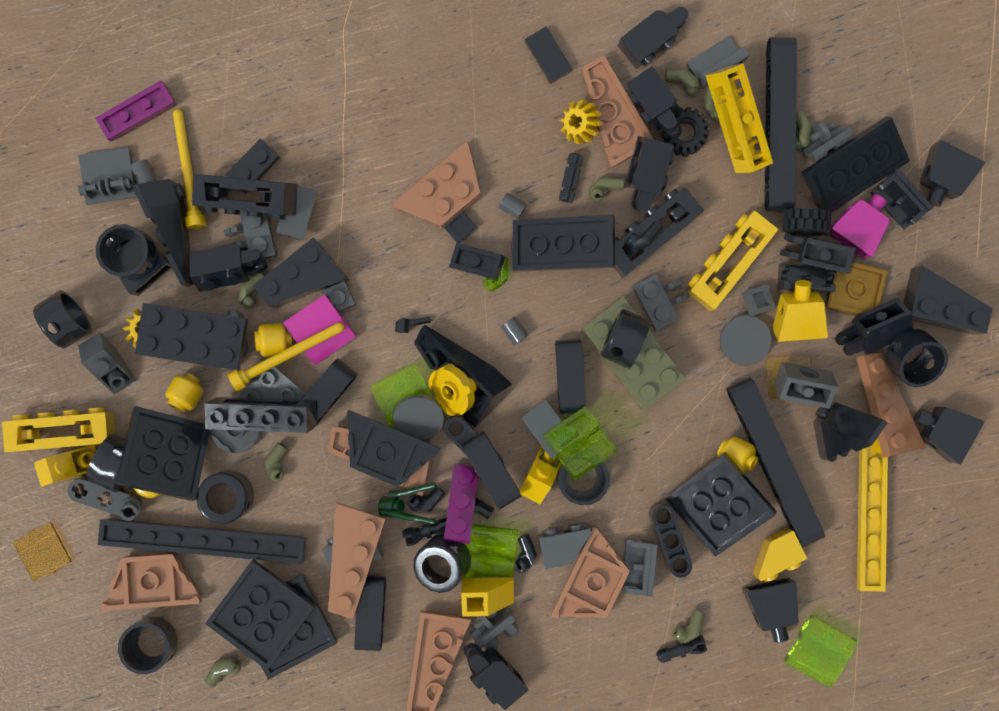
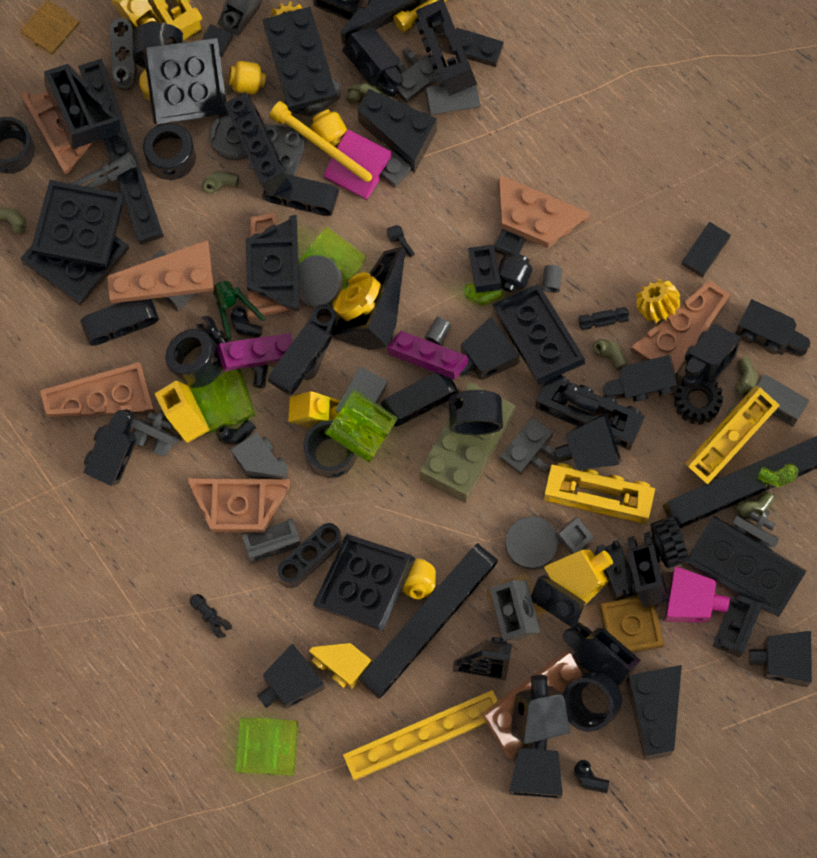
camera: 65 degrees right, 15 degrees down
(128, 400) = (224, 37): none -> black tile
(146, 567) = (78, 109): none -> black wedge
(220, 563) = (125, 163): none -> dark grey pin
(492, 236) = (514, 272): none -> black head
(536, 351) = (427, 355): none -> magenta plate
(555, 297) = (488, 351): none -> black torso
(691, 247) = (591, 445): none -> black torso
(691, 631) = (234, 616): olive arm -> none
(797, 98) = (781, 477): none -> clear neon green arm
(814, 344) = (557, 600): none -> black plate
(910, 409) = (539, 712): none -> black torso
(973, 390) = (587, 779): none -> black arm

